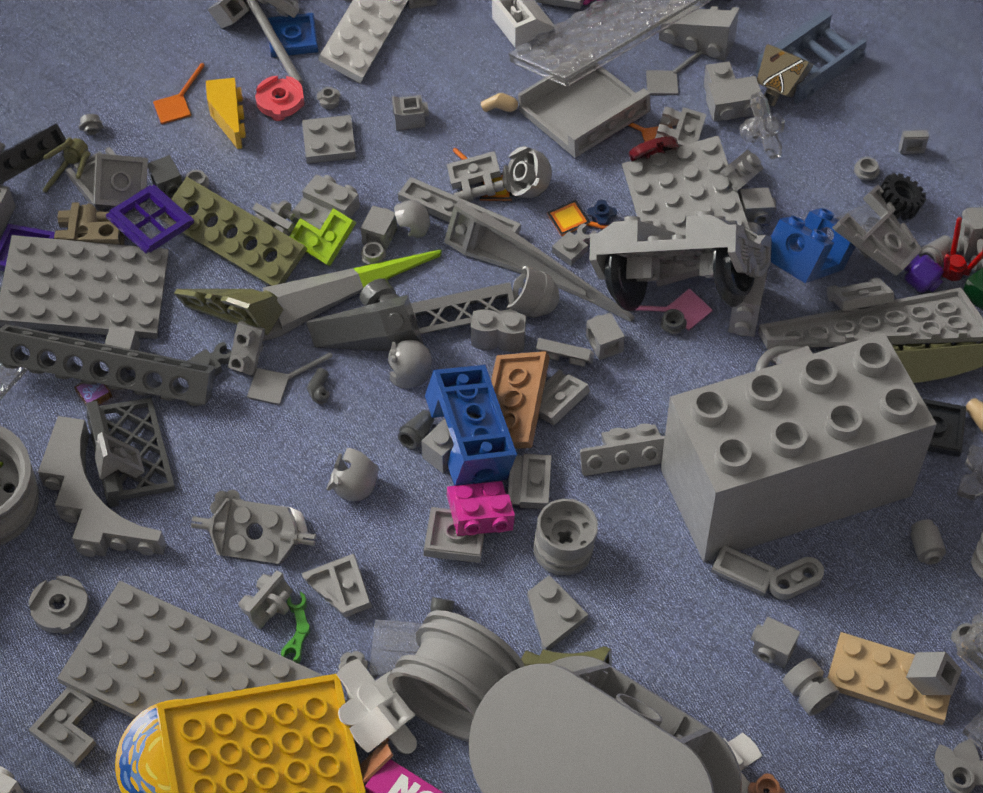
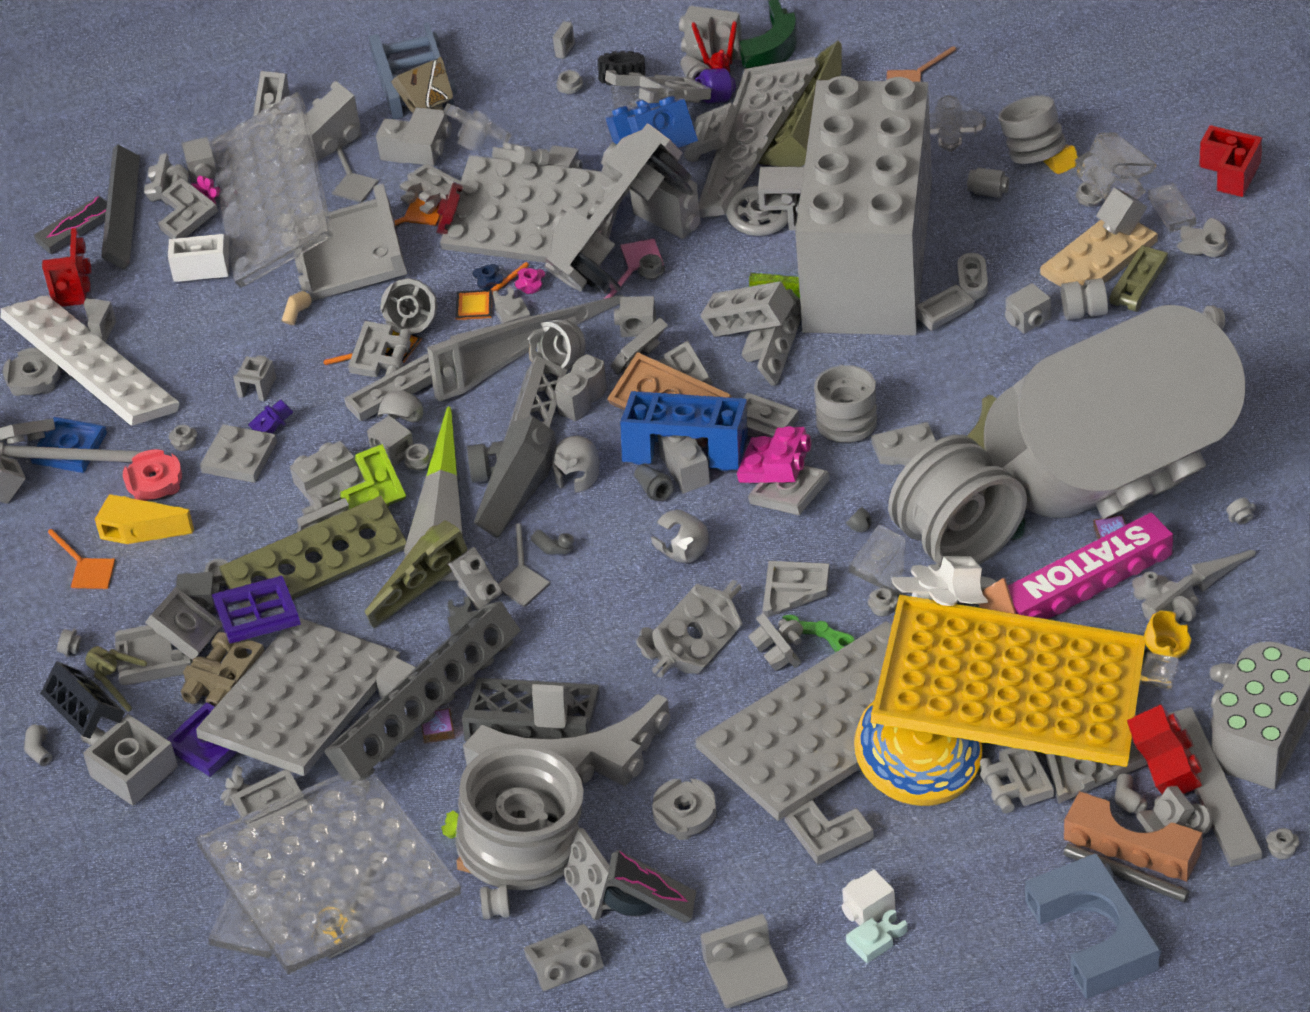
camera: 60 degrees left, 10 degrees down
(372, 142) = (271, 417): none -> dark purple piece
(643, 412) = (747, 309): none -> light grey brick
(873, 726) = (1138, 278): none -> olive plate

